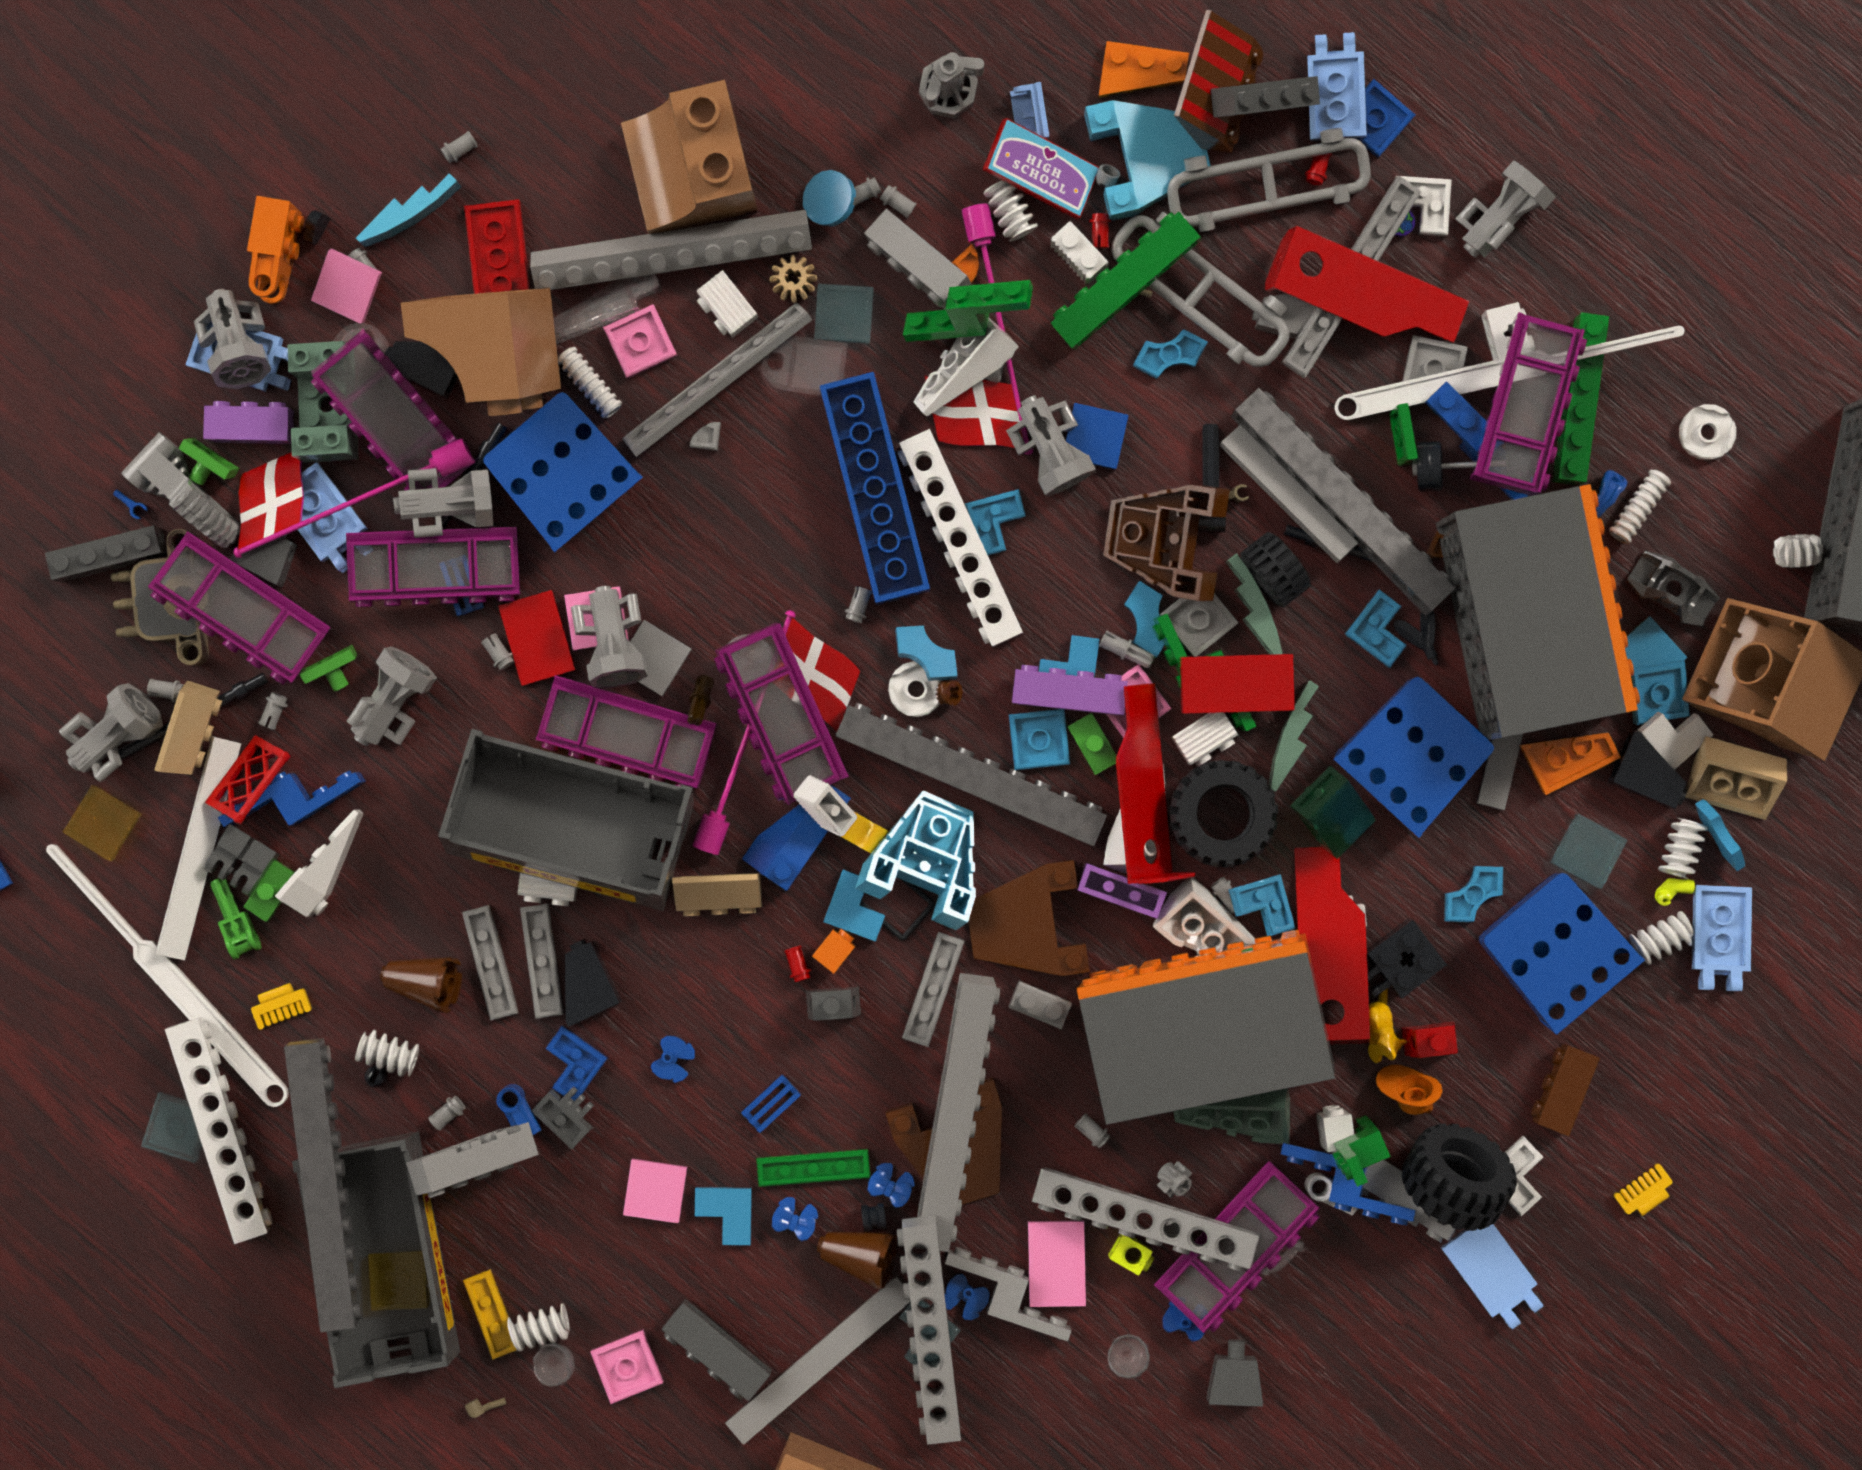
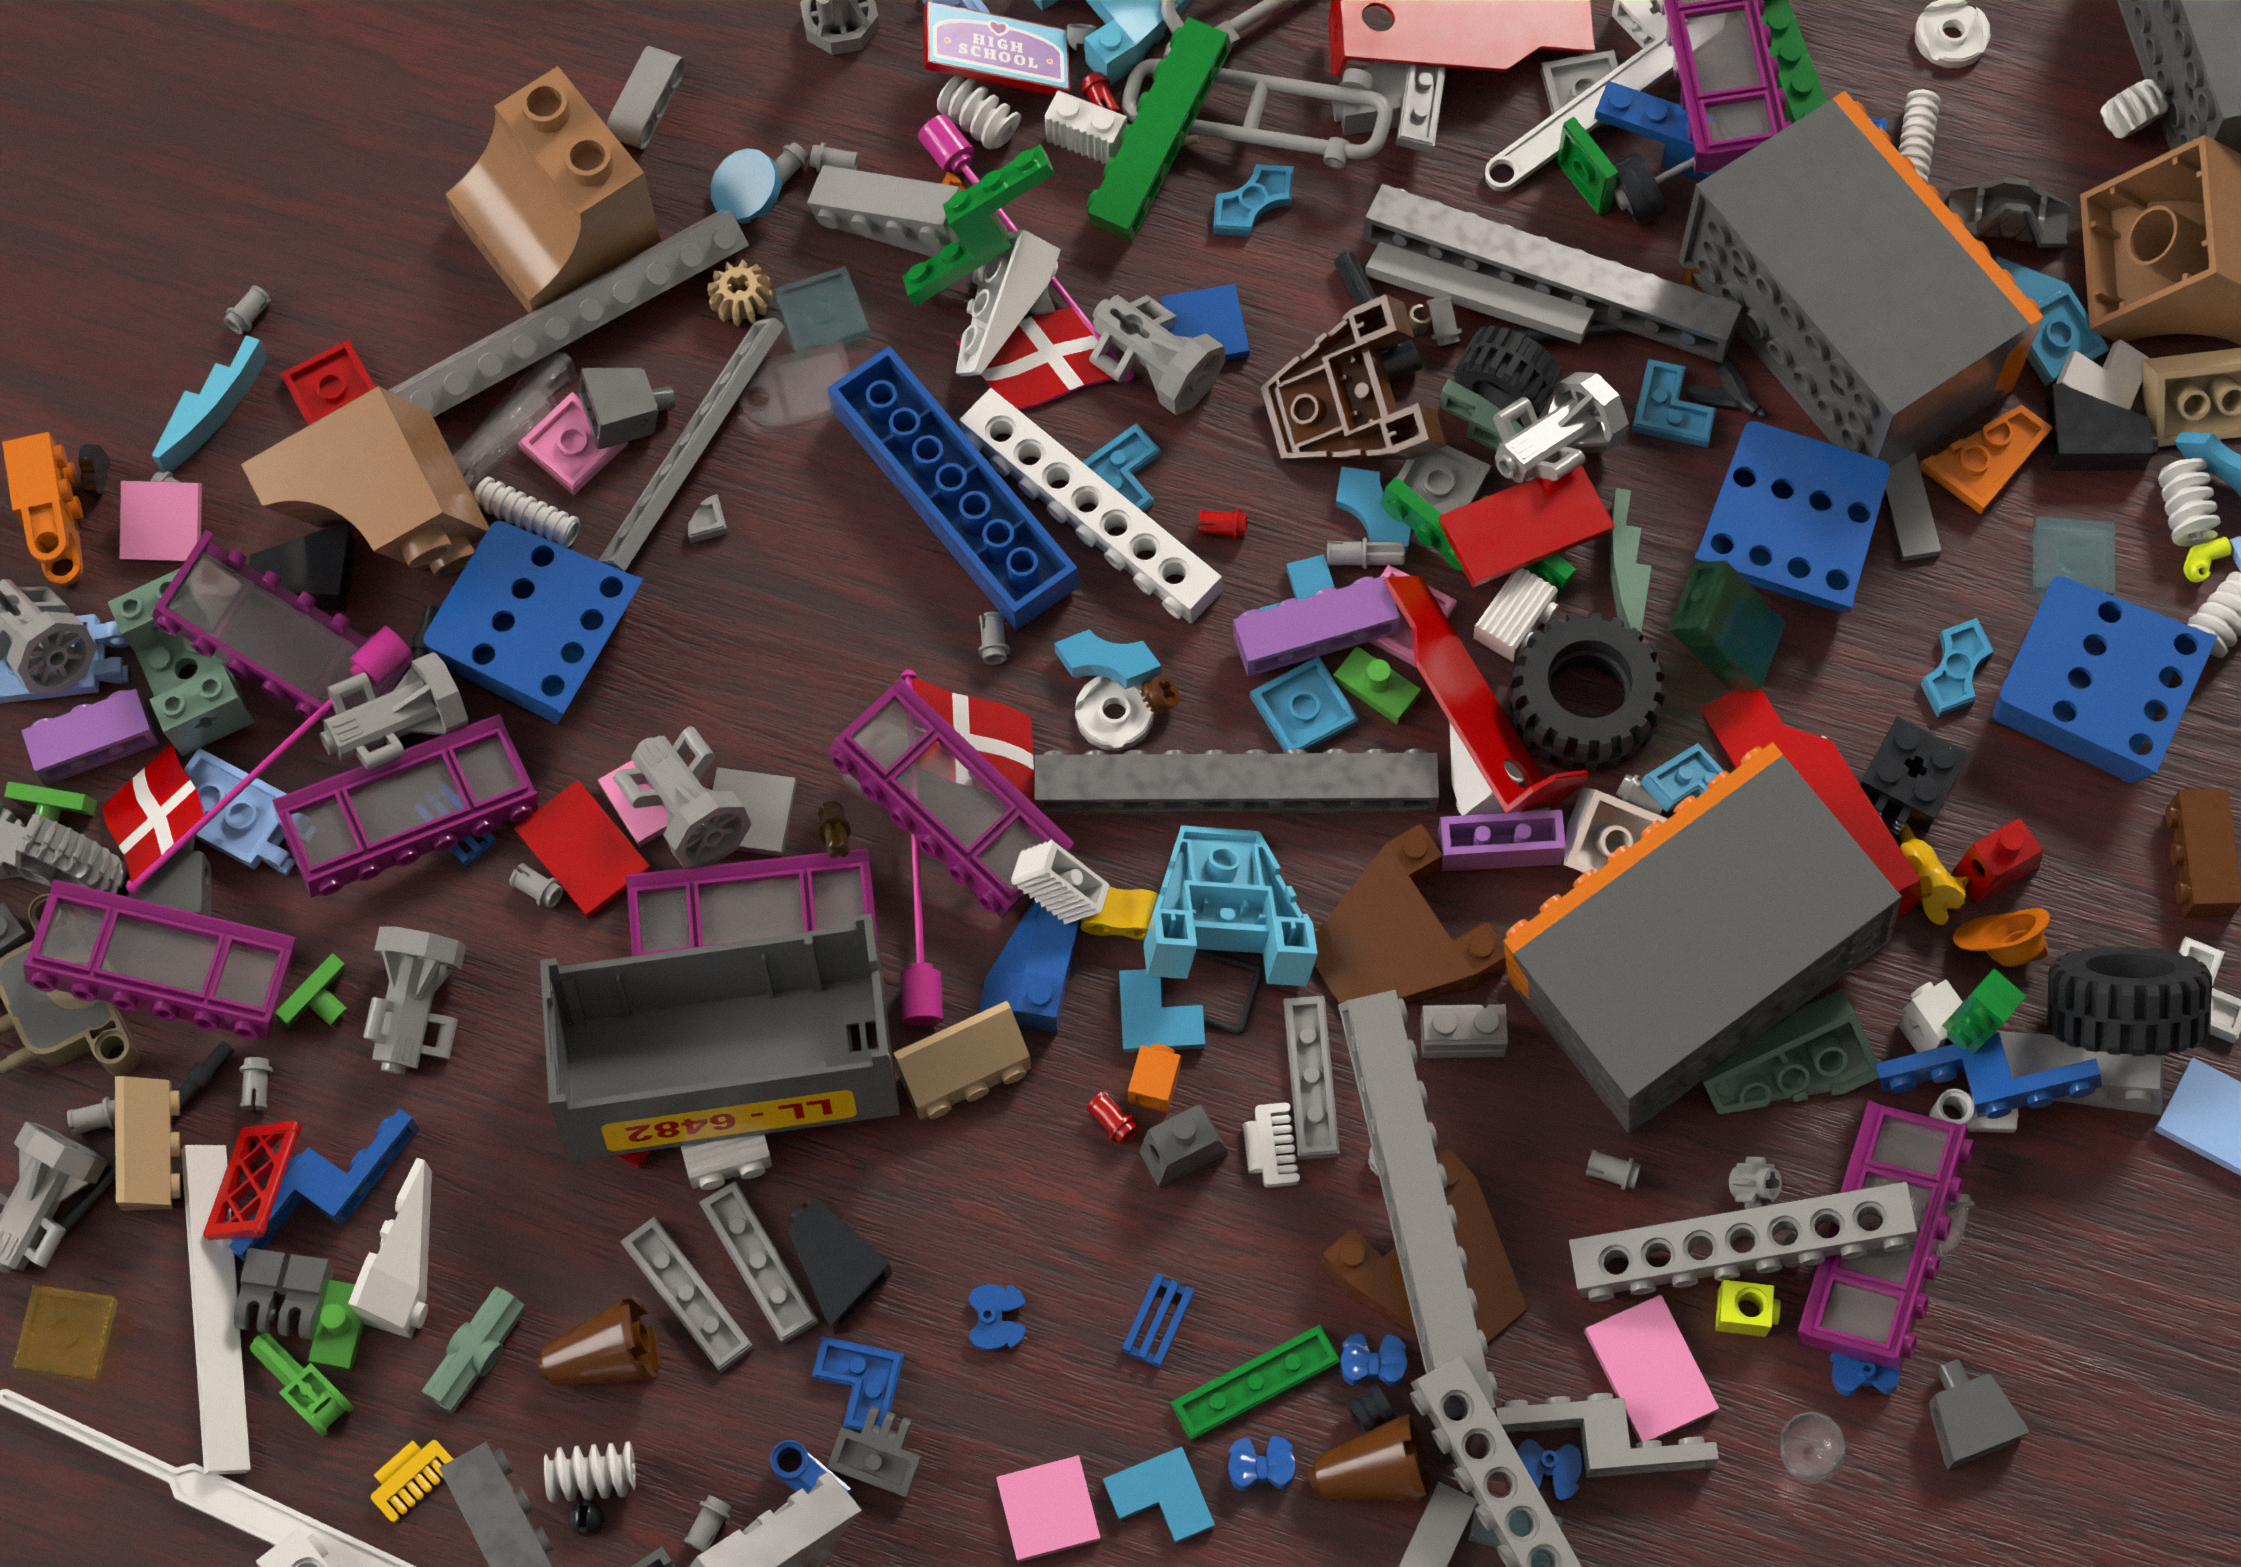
camera: 25 degrees left, 20 degrees down
(346, 944) = (474, 1349): none -> sand green piece
(681, 331) = (621, 404): none -> dark grey torso
(726, 304) = (667, 354): white brick -> none
(788, 97) = (646, 96): none -> light grey beam
(882, 1020) = (1261, 1145): none -> white piece
(1043, 587) = (1223, 523): none -> red pin
(1253, 511) = (1443, 320): none -> light grey pin
(1308, 622) = (1581, 415): none -> light grey piece

